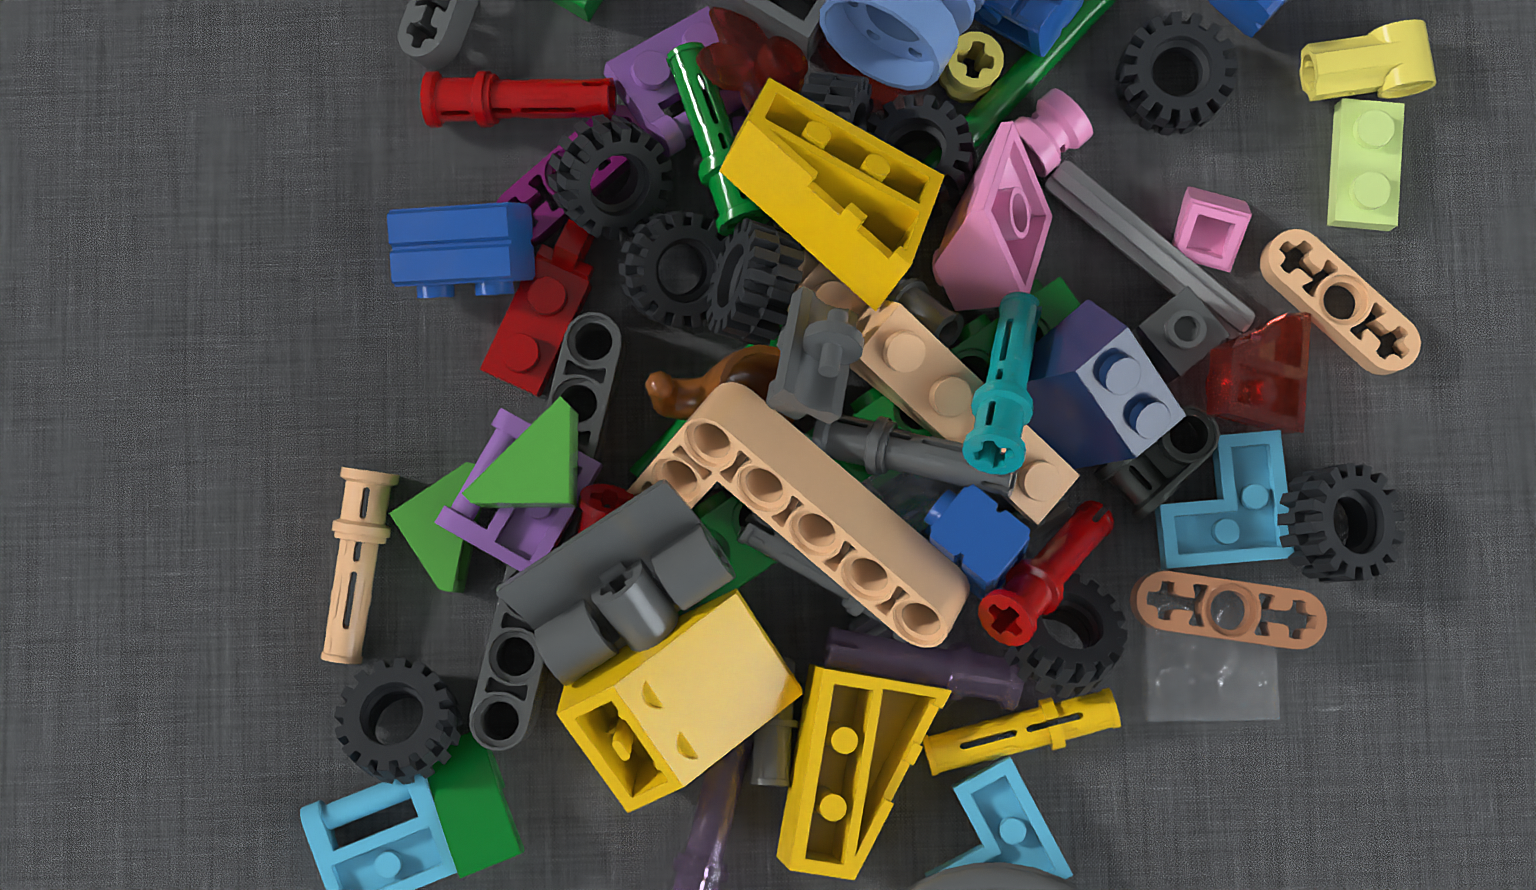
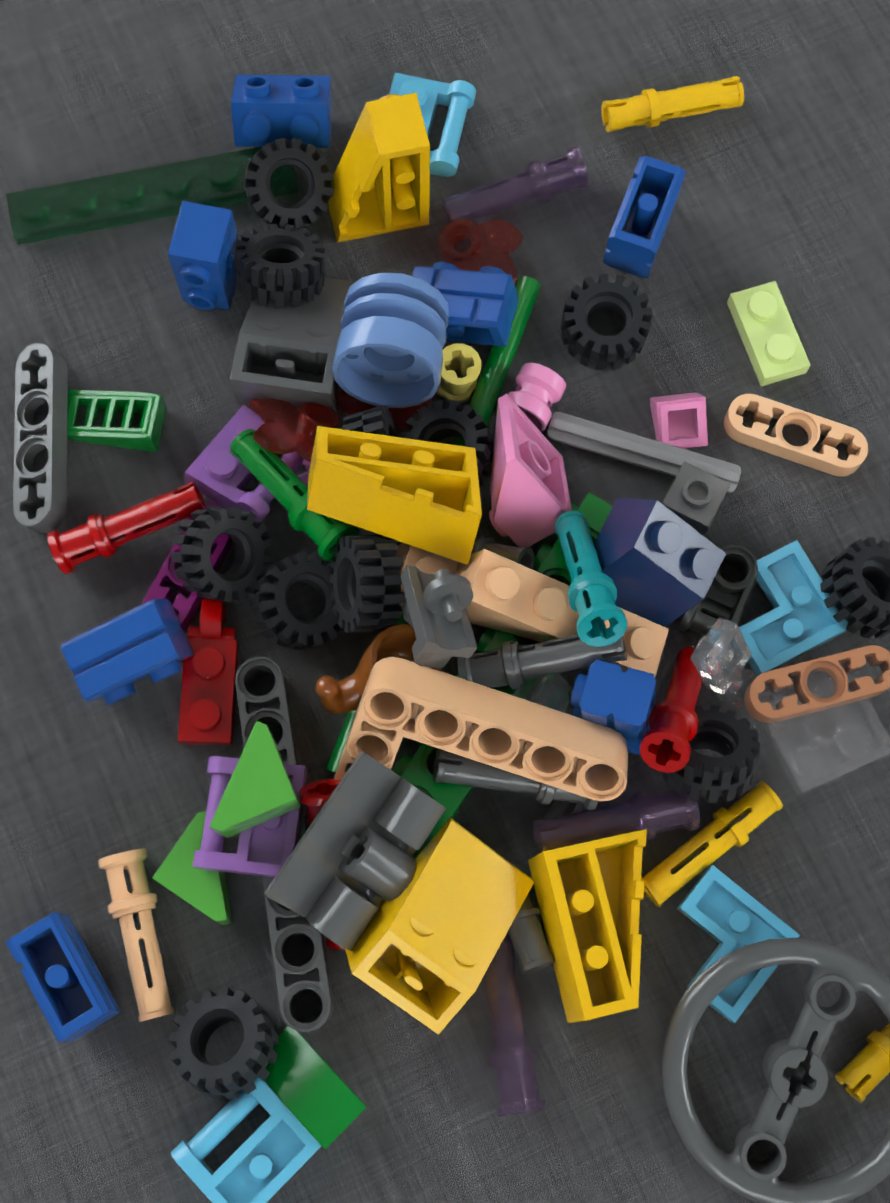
camera: 30 degrees left, 10 degrees down
(256, 578) = (63, 977): none -> blue brick
(1125, 536) = (721, 661): none -> clear plate
(1263, 375) = (766, 507): clear red wing -> none
(1386, 61) = (749, 256): light yellow piece -> none

